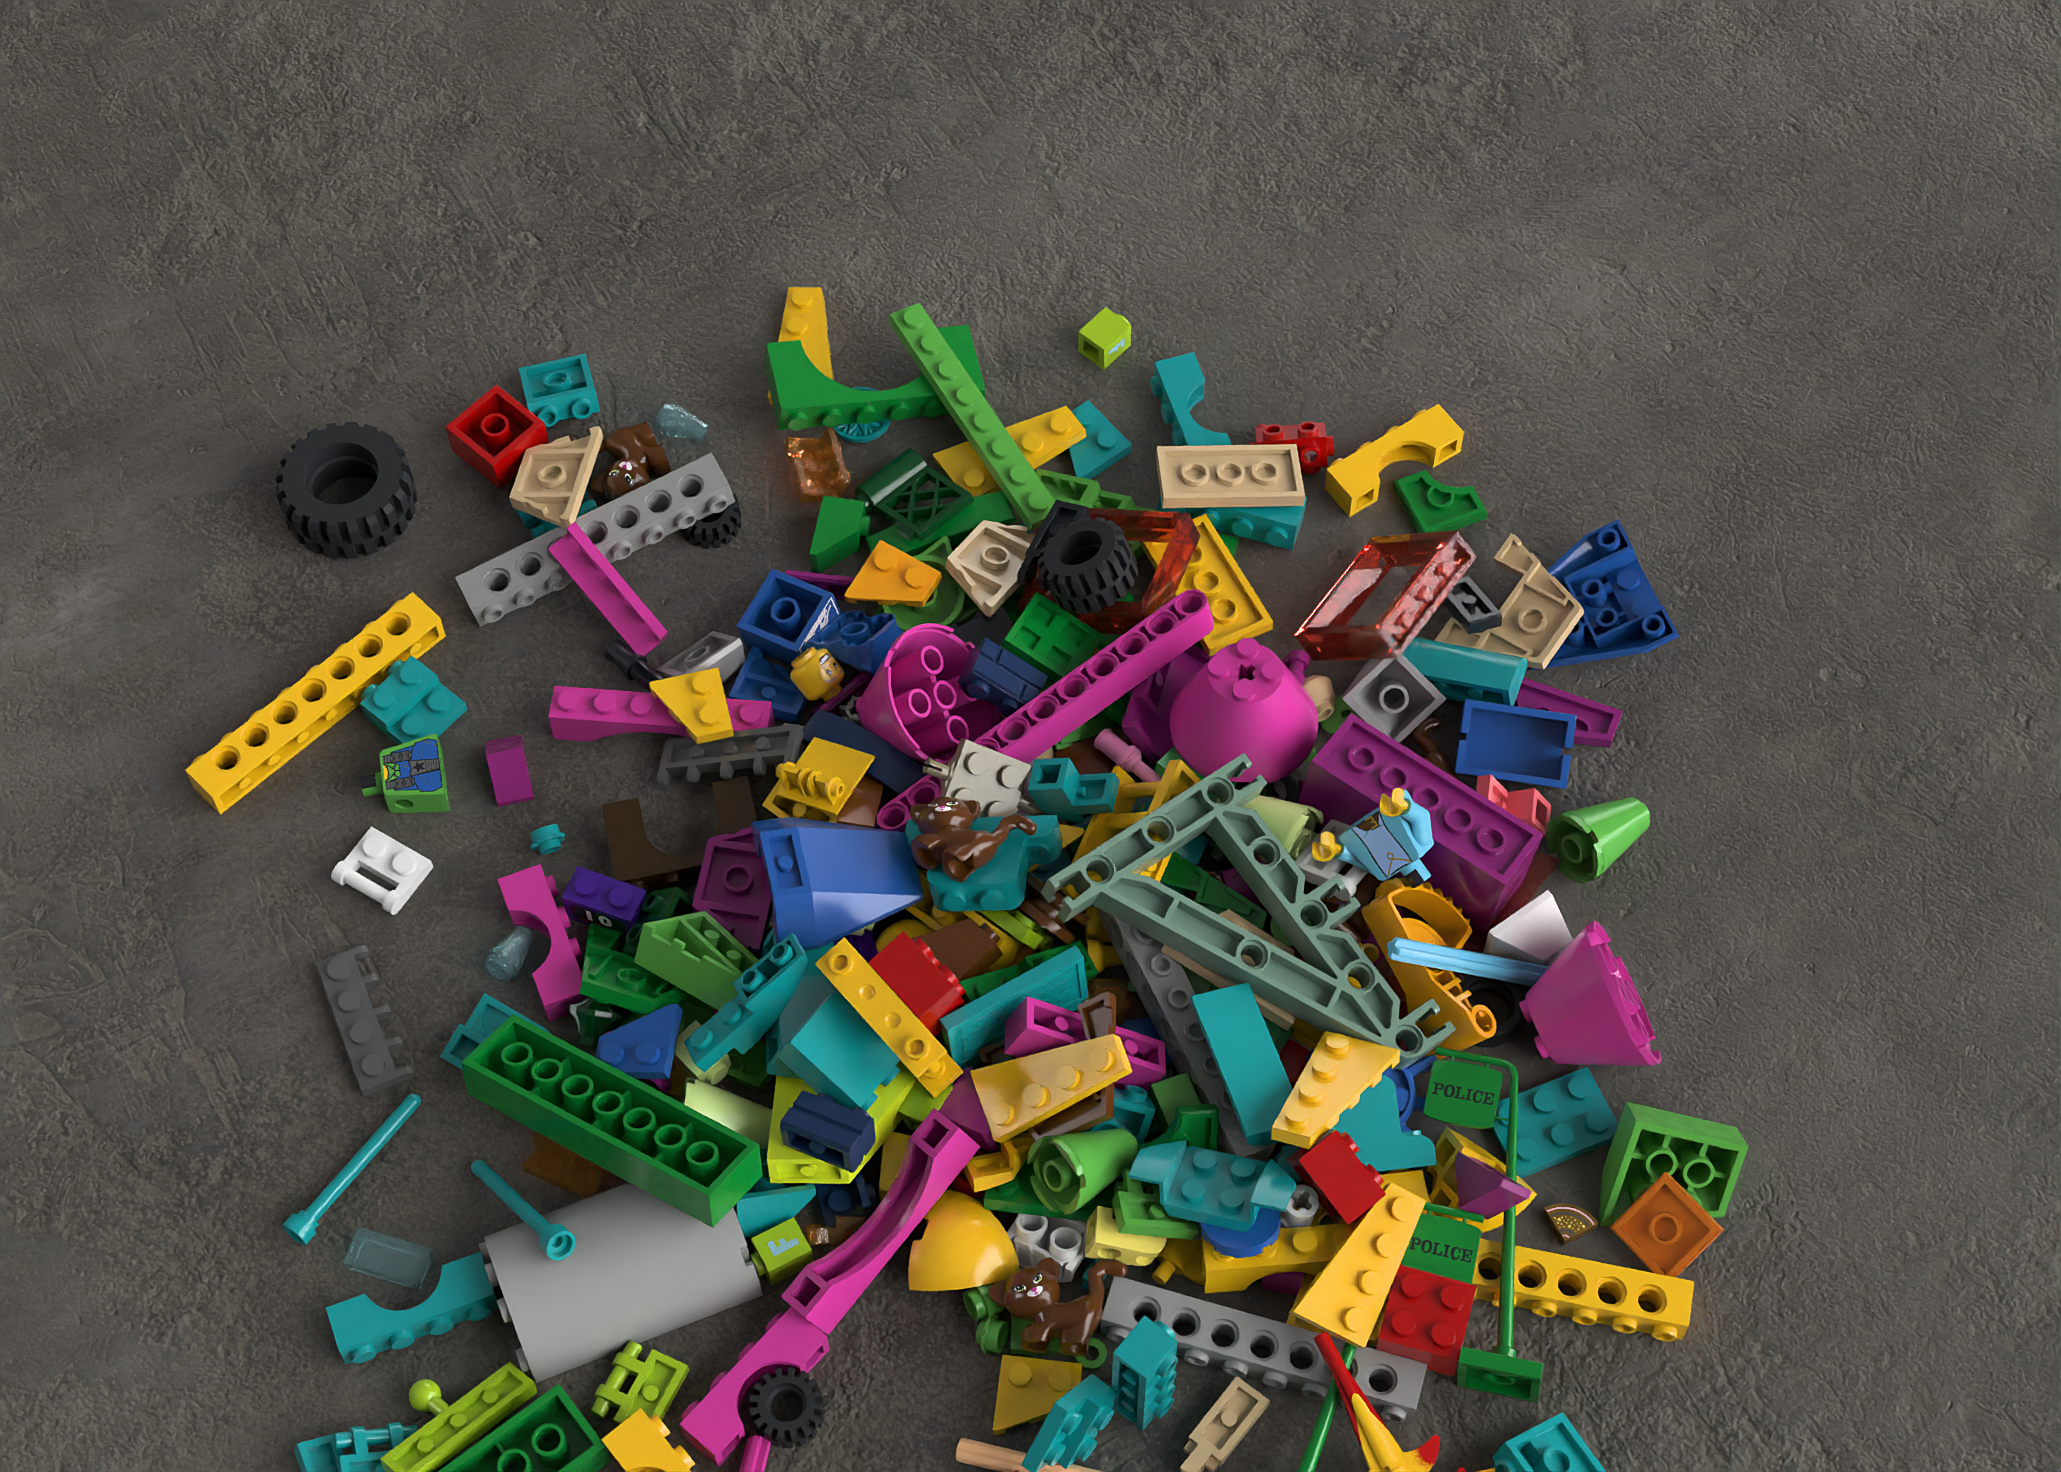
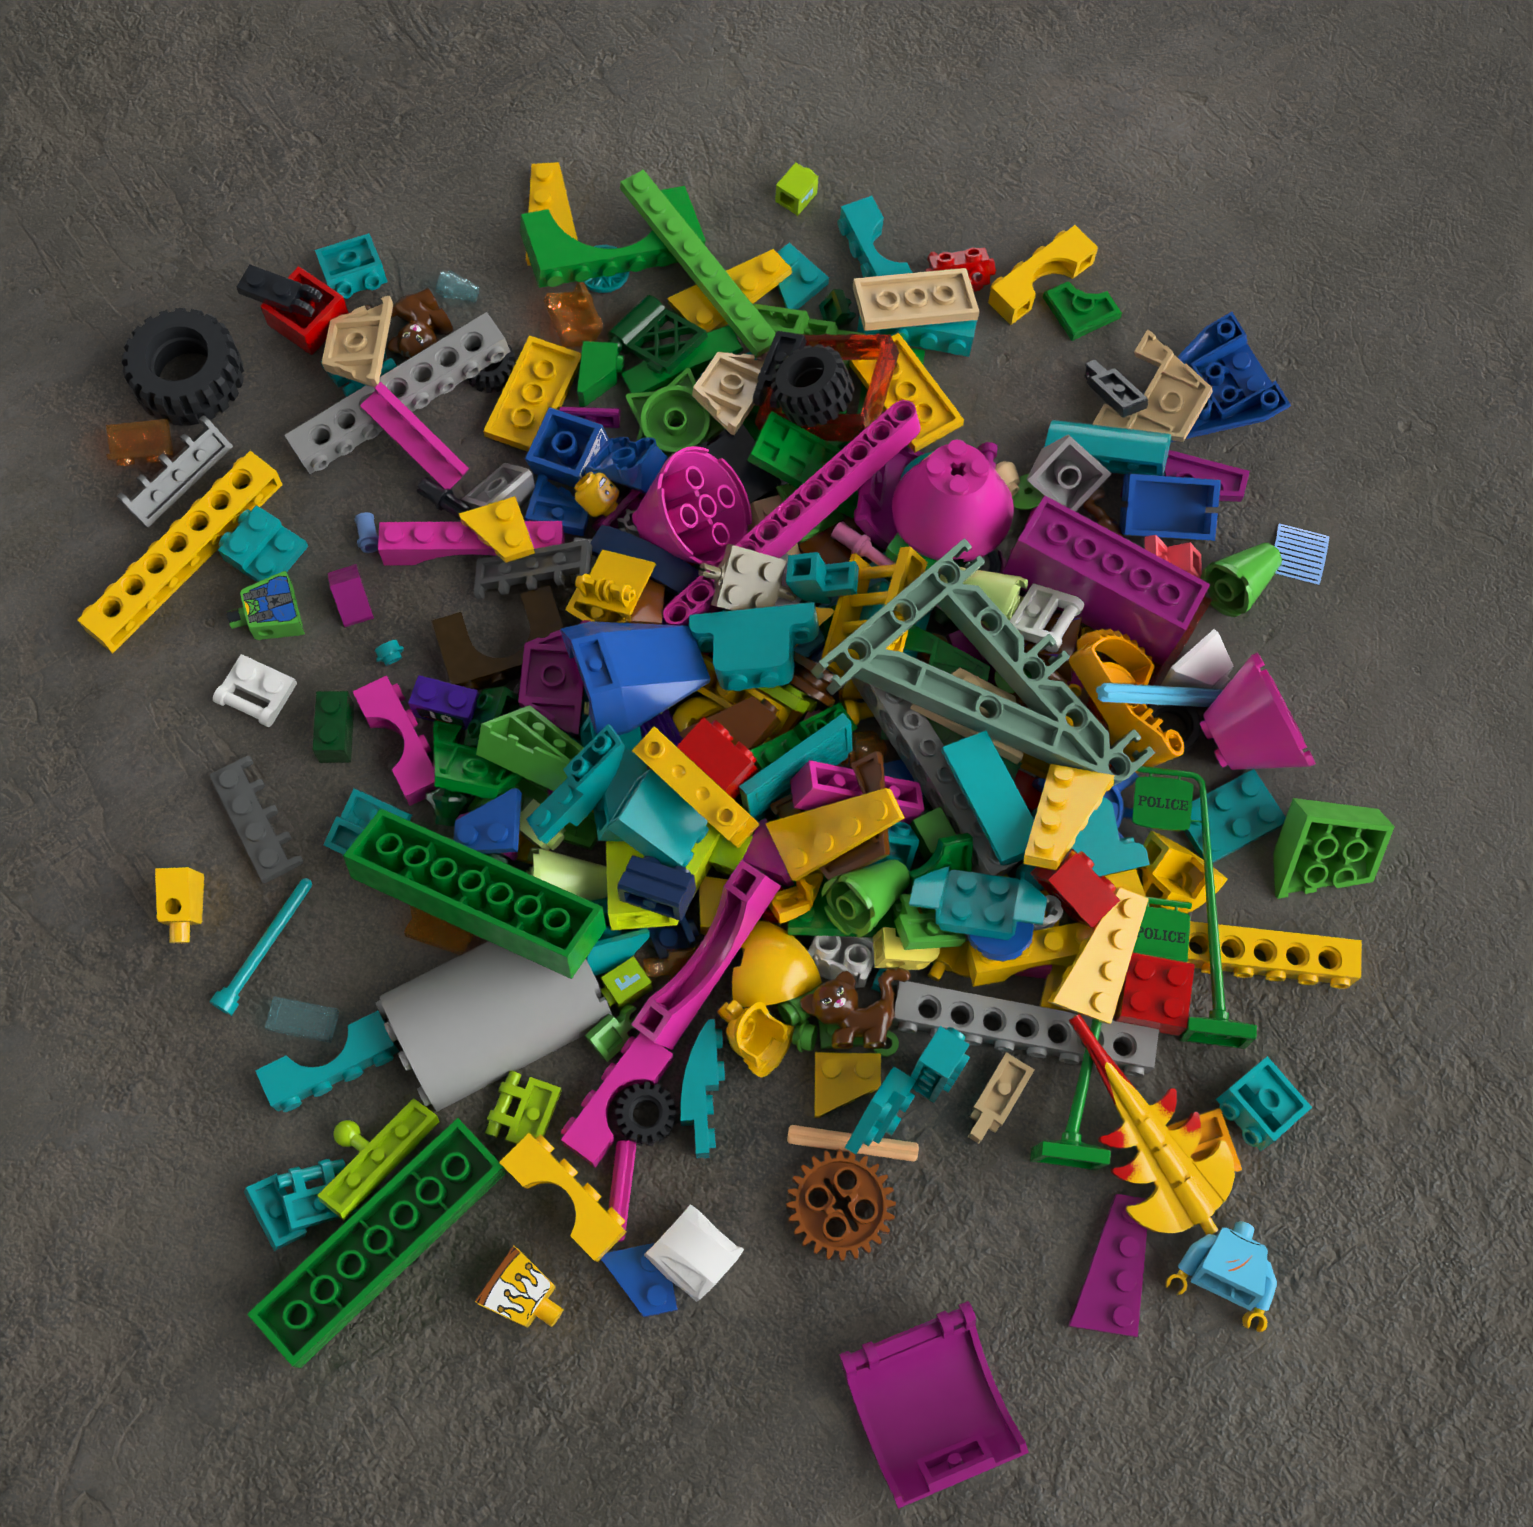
camera: 10 degrees left, 10 degrees up
(262, 1103) = (178, 889): none -> yellow torso
(284, 572) = (139, 441): none -> clear orange bracket
(324, 613) = (177, 474): none -> hinge
(468, 411) = (277, 291): none -> black hinge
(469, 919) = (333, 727): none -> dark green brick
(508, 955) = (369, 754): clear light blue cone -> none
(538, 698) = (367, 532): none -> medium blue pin
(554, 1239) = (440, 1000): teal piece -> none
(756, 1308) = (611, 1033): none -> bright green plate
(763, 539) = (535, 384): none -> yellow plate
(858, 1370) = (702, 1075): none -> teal slope
(893, 578) = (650, 407): light orange wing -> none
(932, 1326) = (756, 1036): none -> yellow helmet
(948, 837) = (726, 632): reddish brown animal -> none
(1000, 677) = (751, 487): dark blue brick -> none
(1136, 481) = (836, 308): none -> dark green tile
(1384, 840) = (1084, 601): torso -> none
(1443, 561) = (1103, 359): clear red window -> none
(1484, 1188) = (1191, 881): magenta slope -> none
(1569, 1221) = (1253, 897): pearl gold tile -> none
(1666, 1227) = (1333, 897): orange tile -> none
(1678, 815) = (1301, 553): none -> light blue sticker

